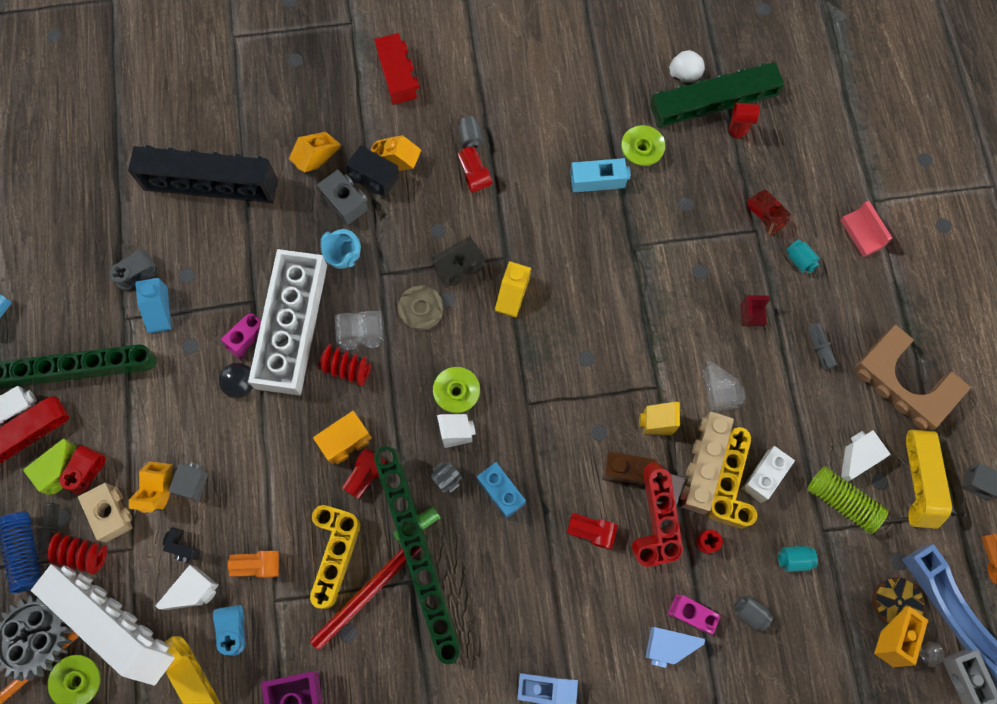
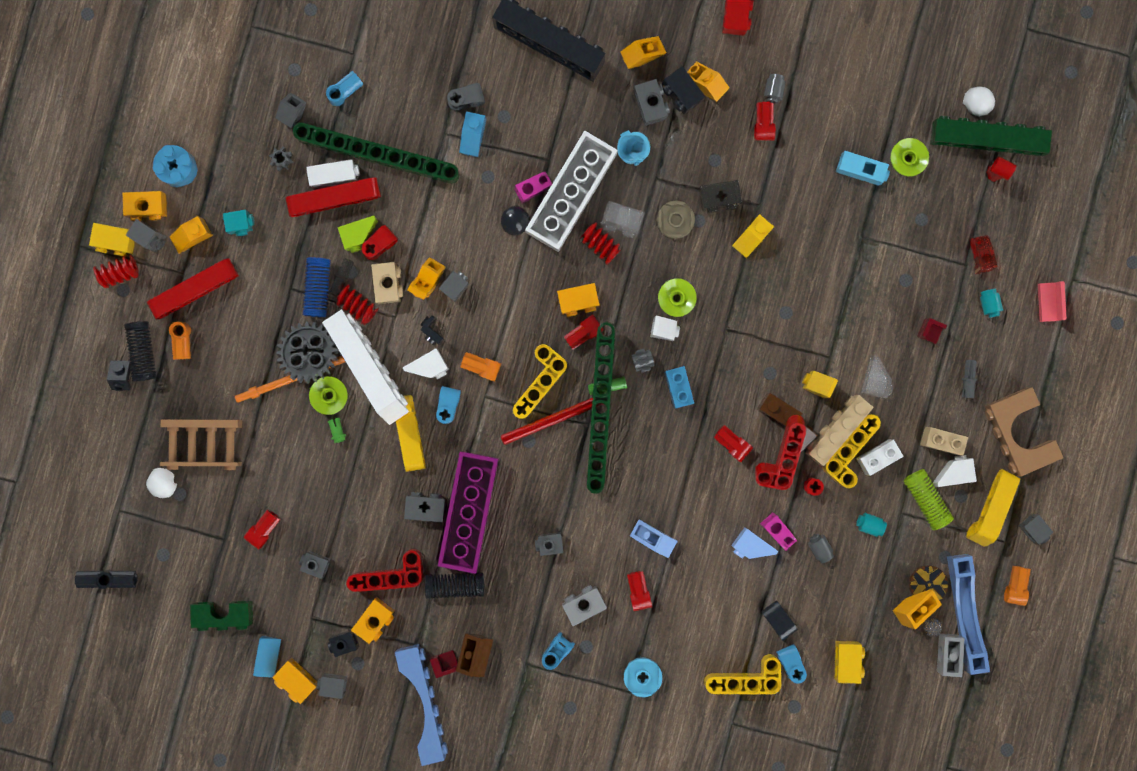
camera: 20 degrees right, 15 degrees up
(830, 425) = (944, 441): none -> tan brick

